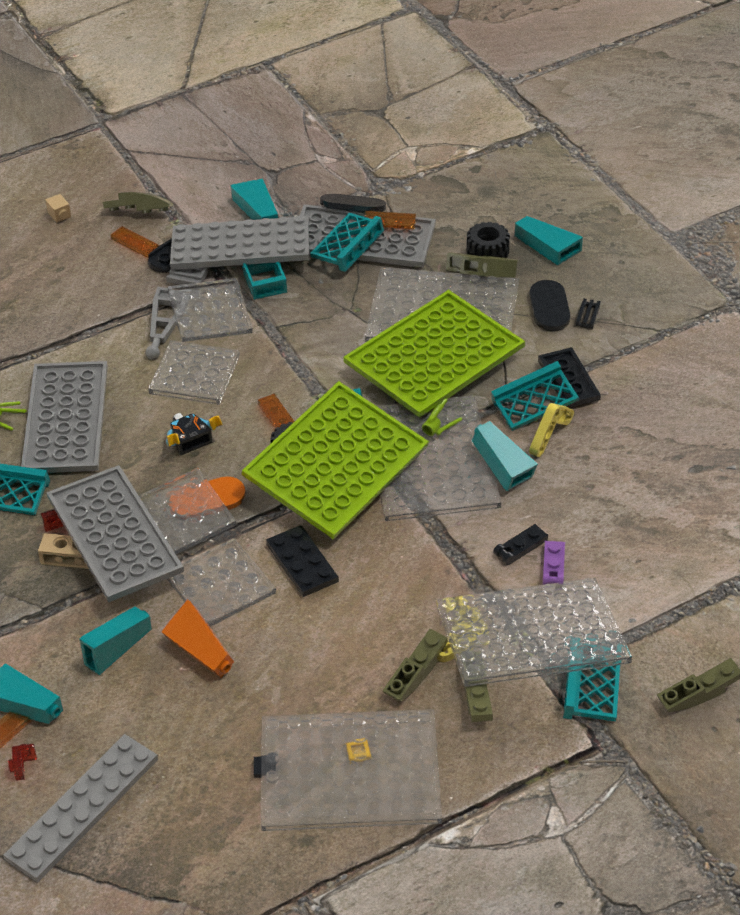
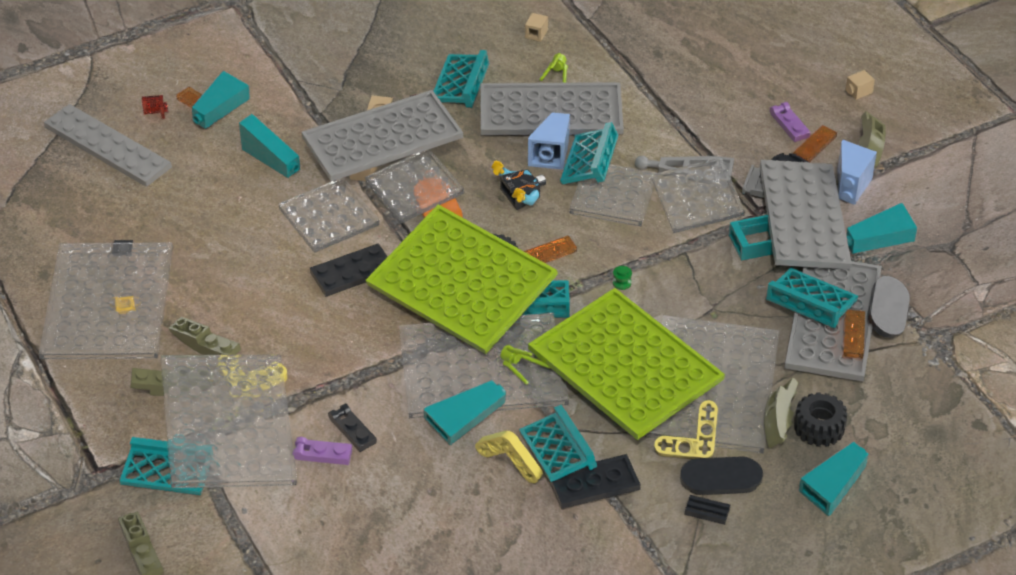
camera: 90 degrees right, 0 degrees up
(101, 256) = (789, 122): none -> medium lavender plate
(128, 405) = (550, 142): none -> light blue slope
(145, 367) = (602, 155): none -> teal fence
(187, 208) = (854, 171): none -> light blue slope
(196, 638) = (257, 198): orange slope -> none
(316, 362) = (622, 277): none -> green wheel
(521, 310) = (695, 444): none -> light yellow beam

